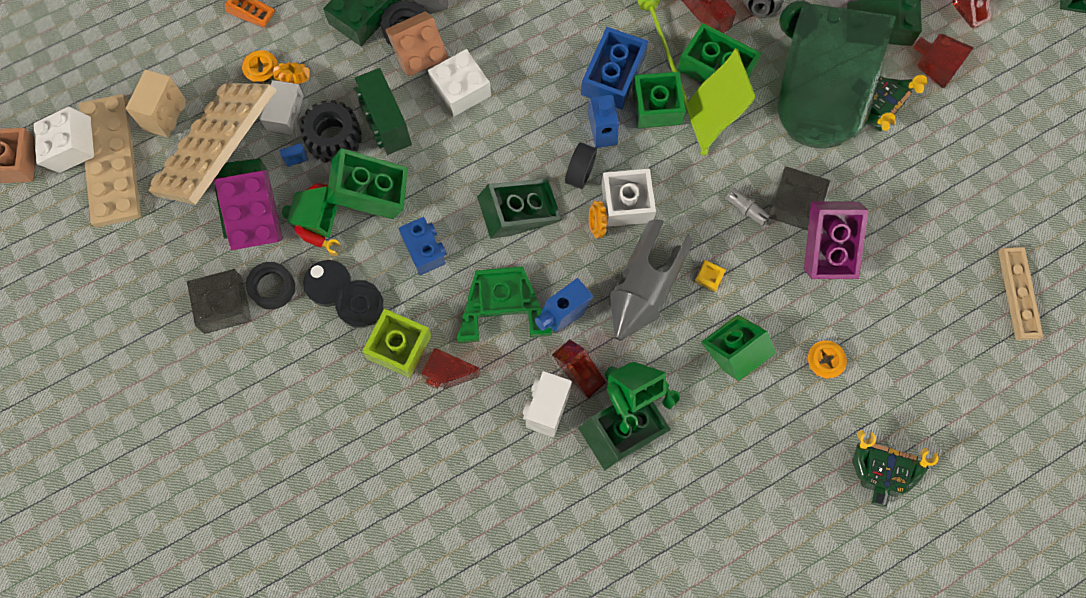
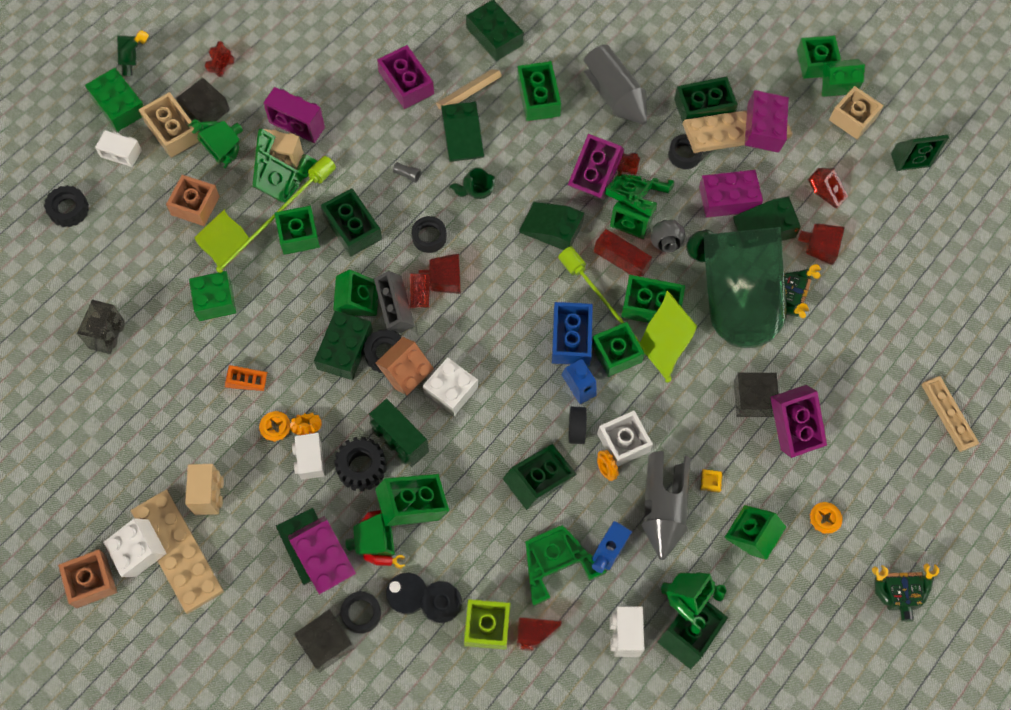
camera: 20 degrees left, 5 degrees down
(211, 141) = (267, 508): tan plate -> none
(294, 155) = (336, 494): blue tile -> none
(422, 245) = (474, 535): blue brick -> none
(579, 368) = (638, 592): clear red slope -> none
(748, 207) = (719, 414): light grey pin -> none

